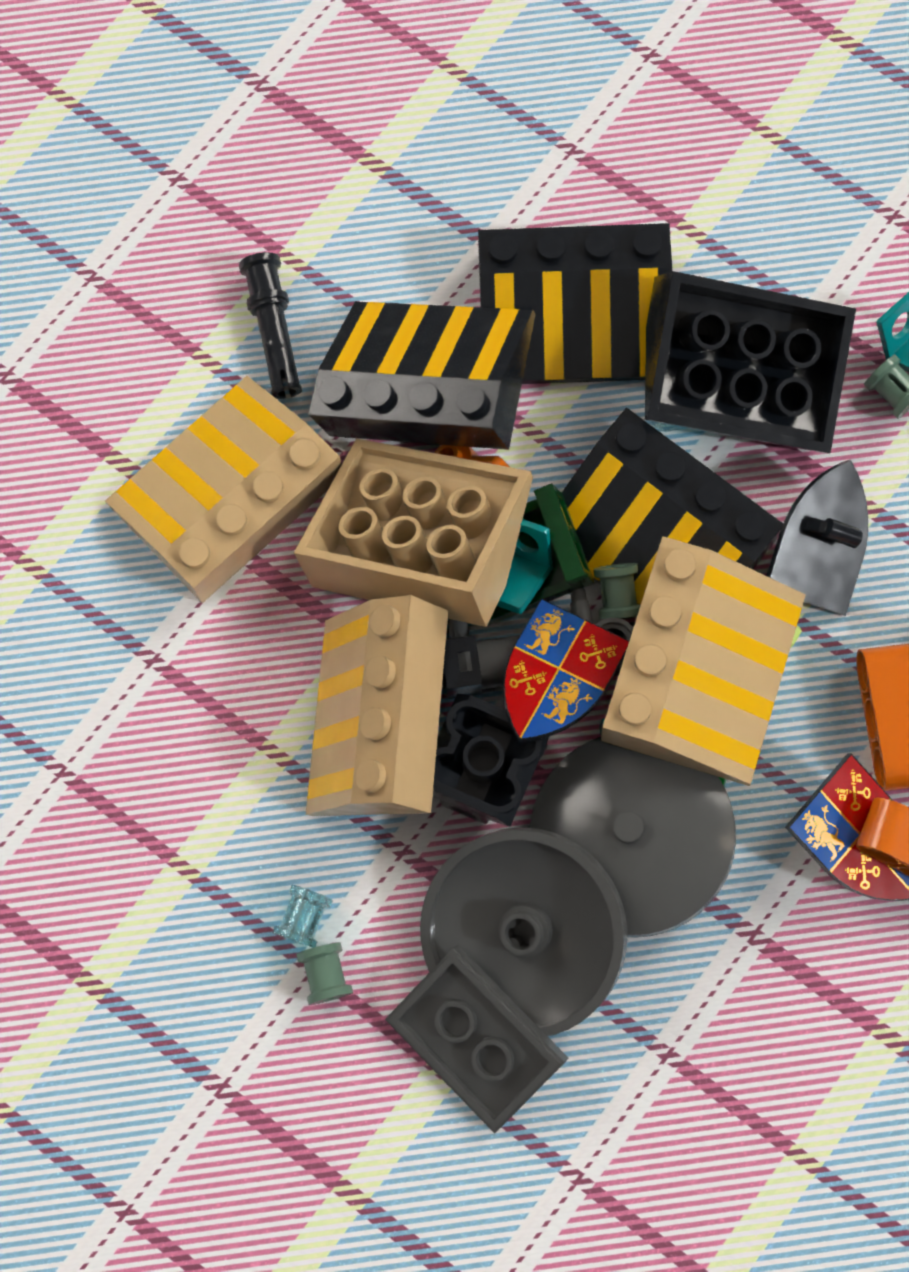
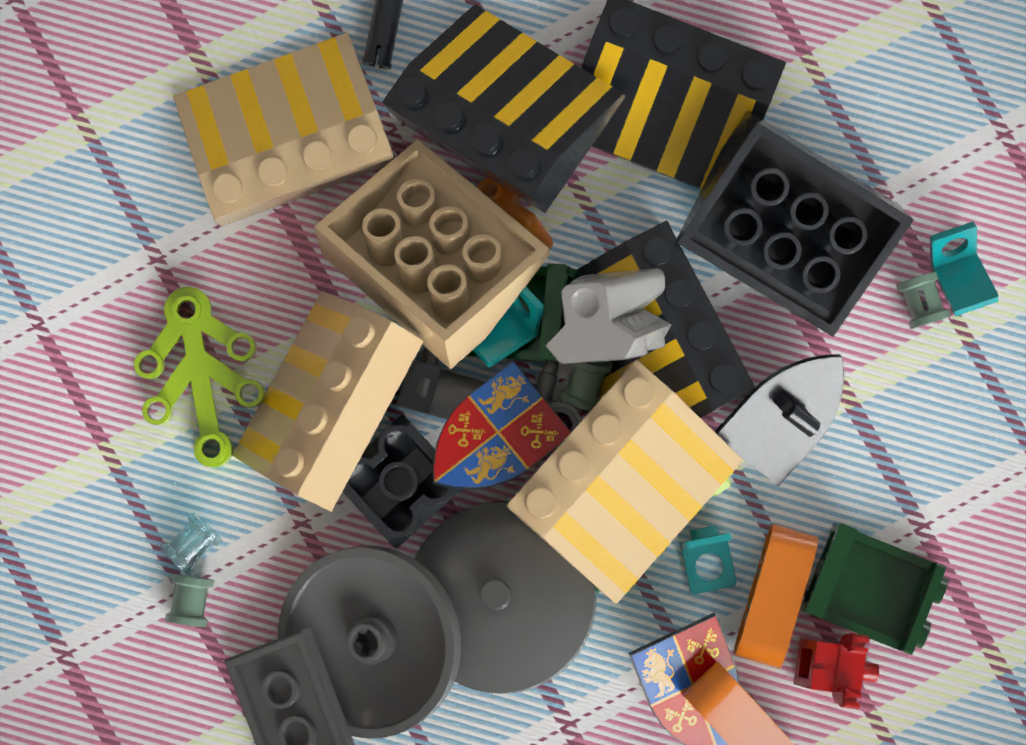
camera: 20 degrees right, 10 degrees up
(237, 743) = (198, 369): none -> lime plant
(615, 512) = (609, 318): none -> light grey piece
(809, 693) = (708, 541): none -> teal bracket

